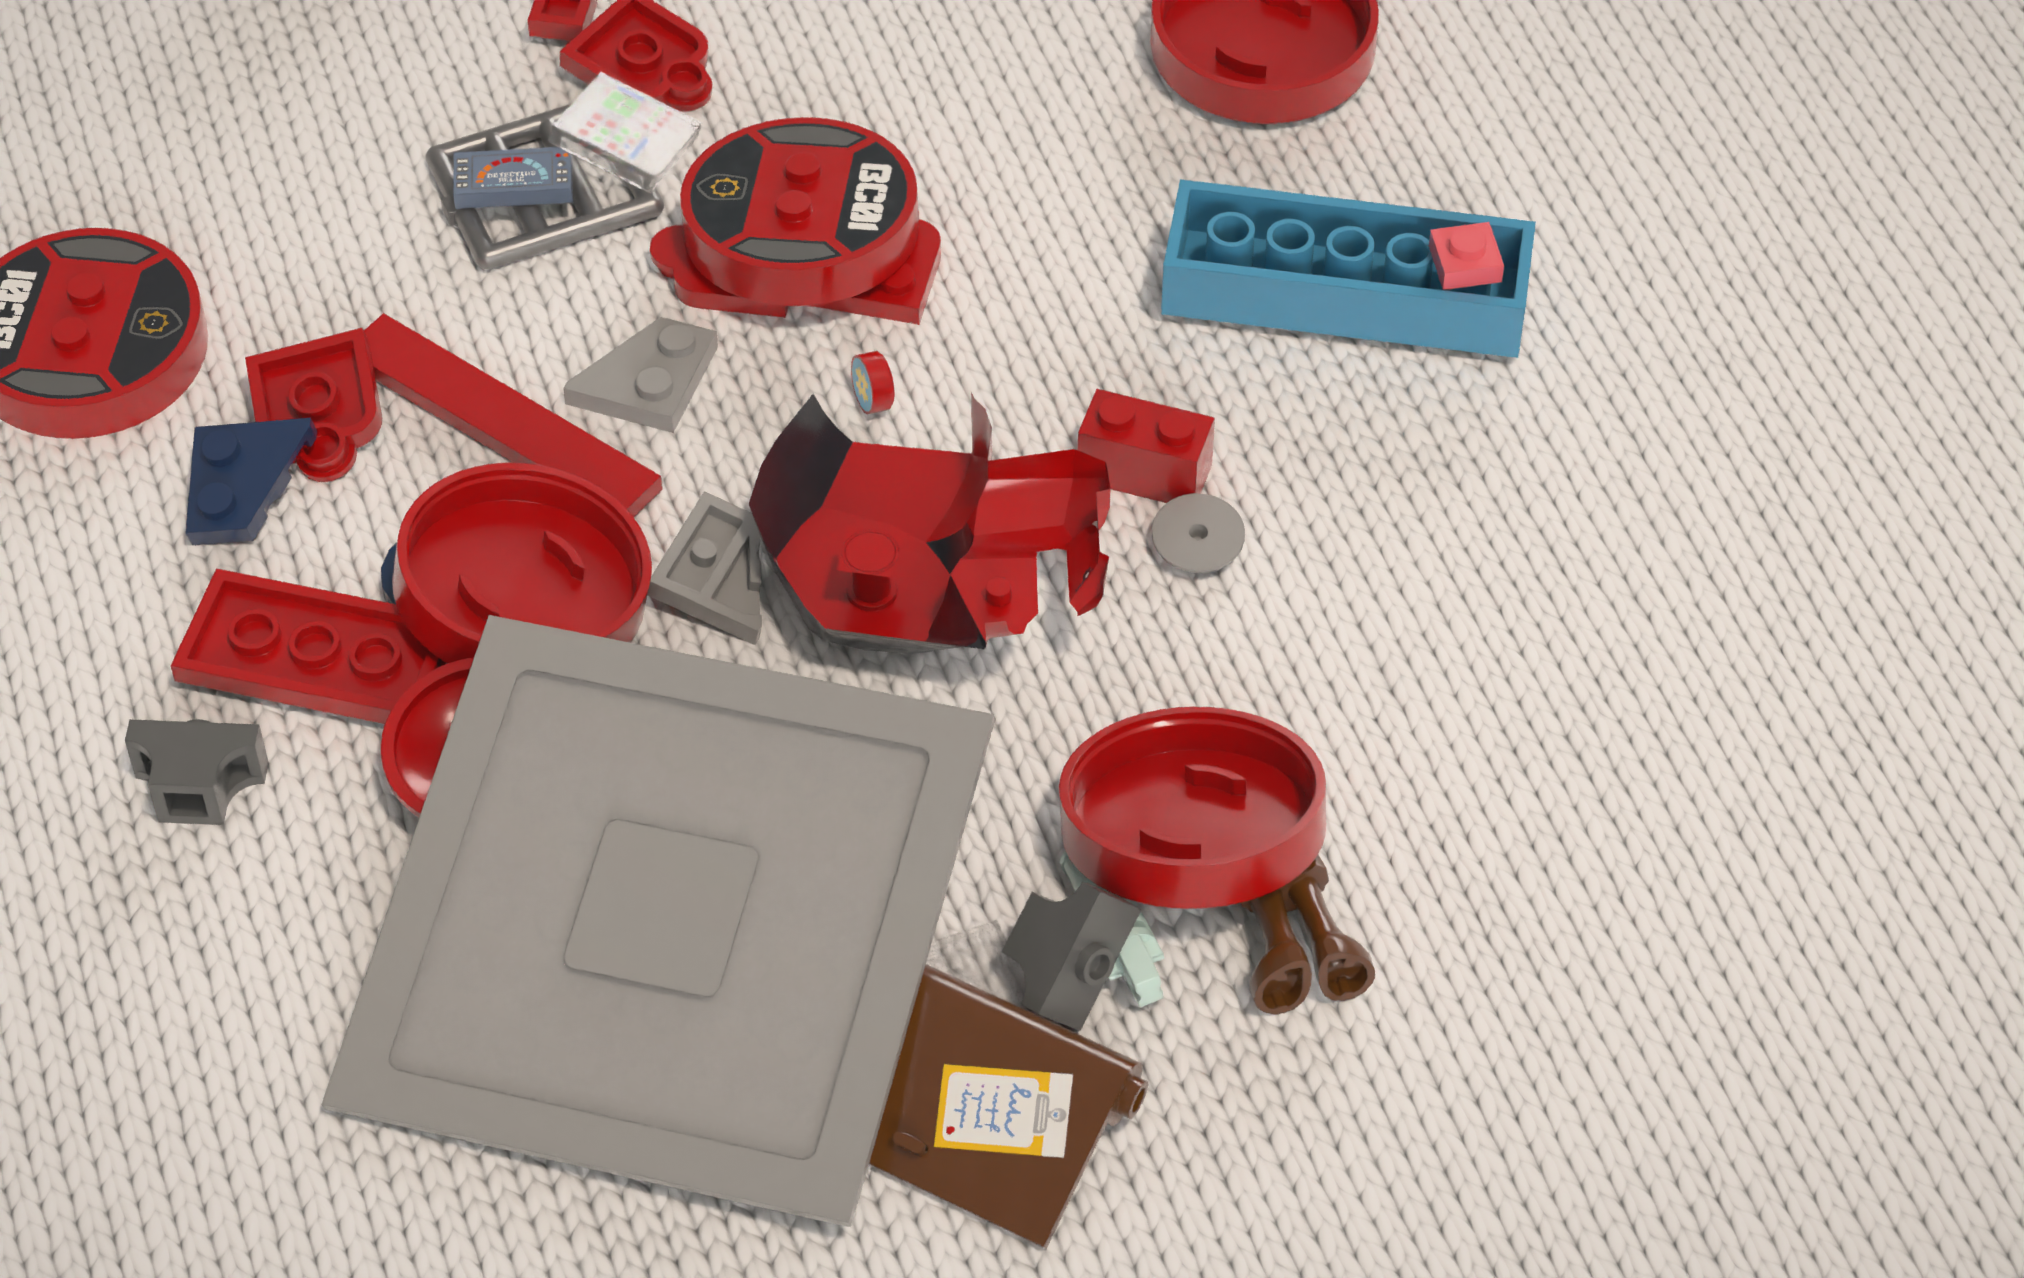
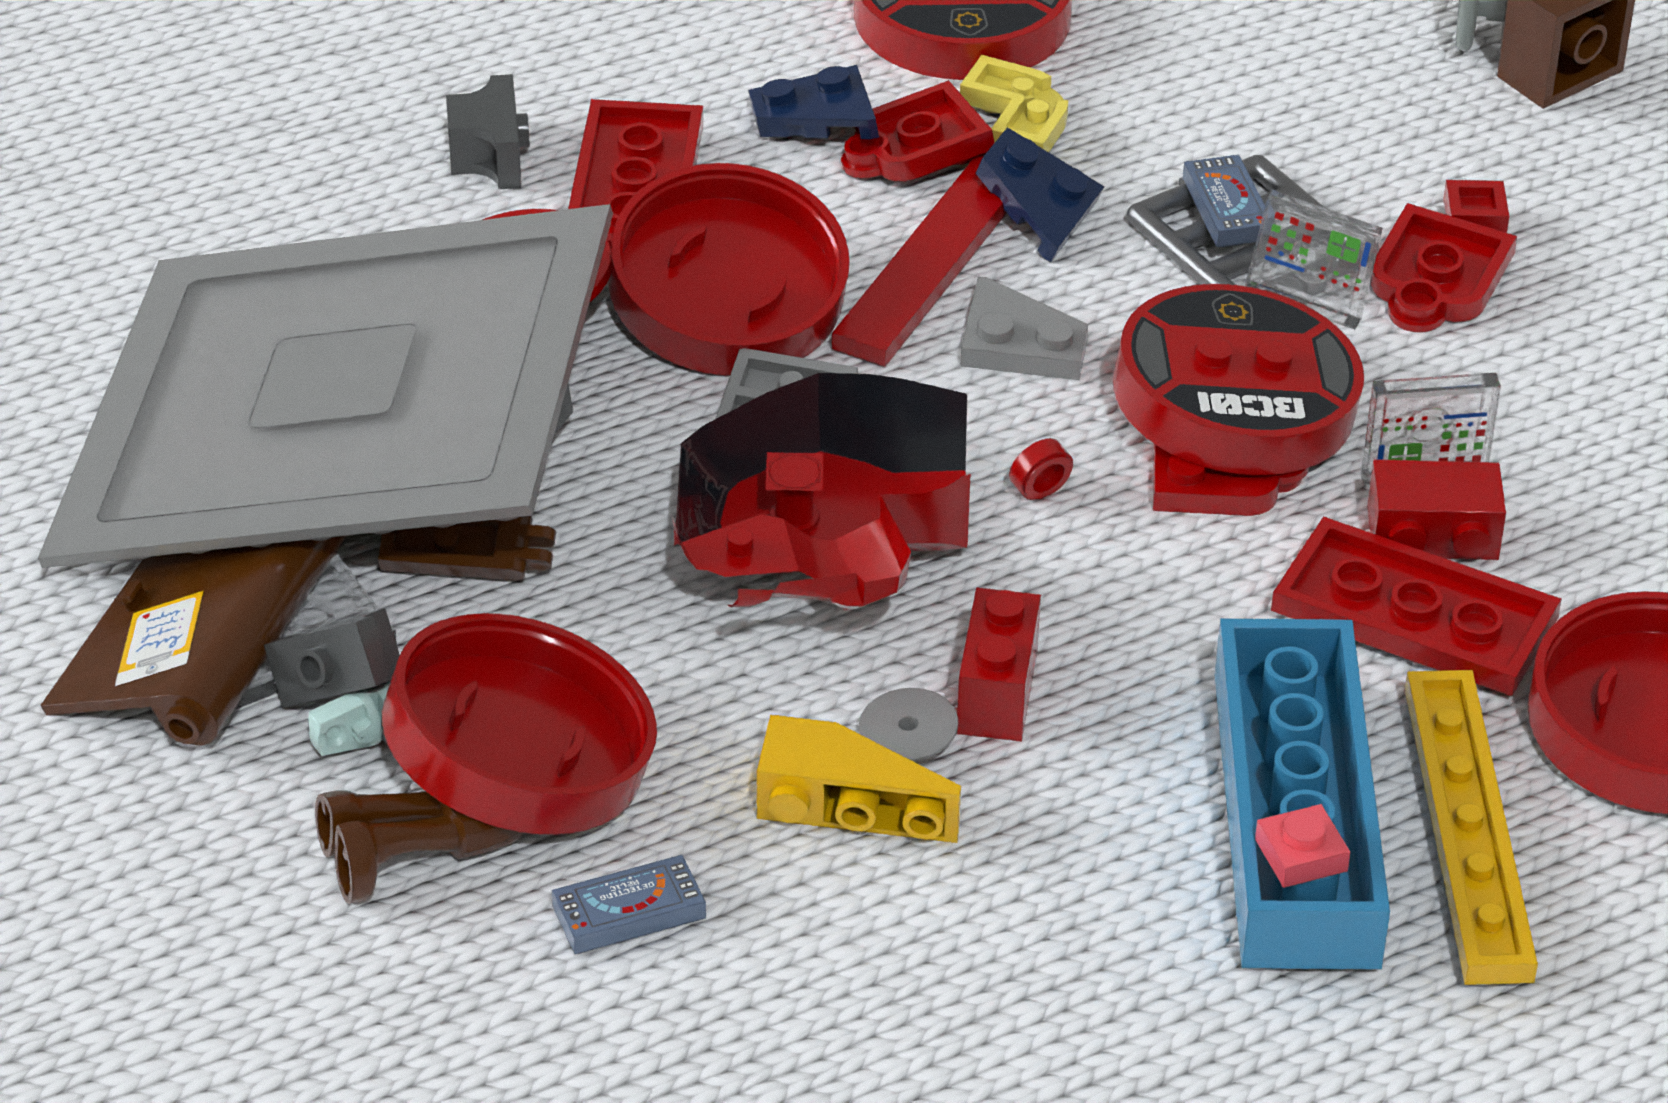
camera: 80 degrees right, 10 degrees down
(267, 314) = (1021, 98): none -> light yellow plate
(444, 317) = (1038, 189): none -> dark blue wing
(914, 88) = (1431, 420): none -> clear tile
(992, 121) = (1439, 506): none -> red brick
(1105, 161) = (1418, 604): none -> red plate
(1271, 583) = (845, 781): none -> yellow slope
(1385, 177) = (1470, 829): none -> yellow plate
(1395, 770) = (628, 904): none -> sand blue tile

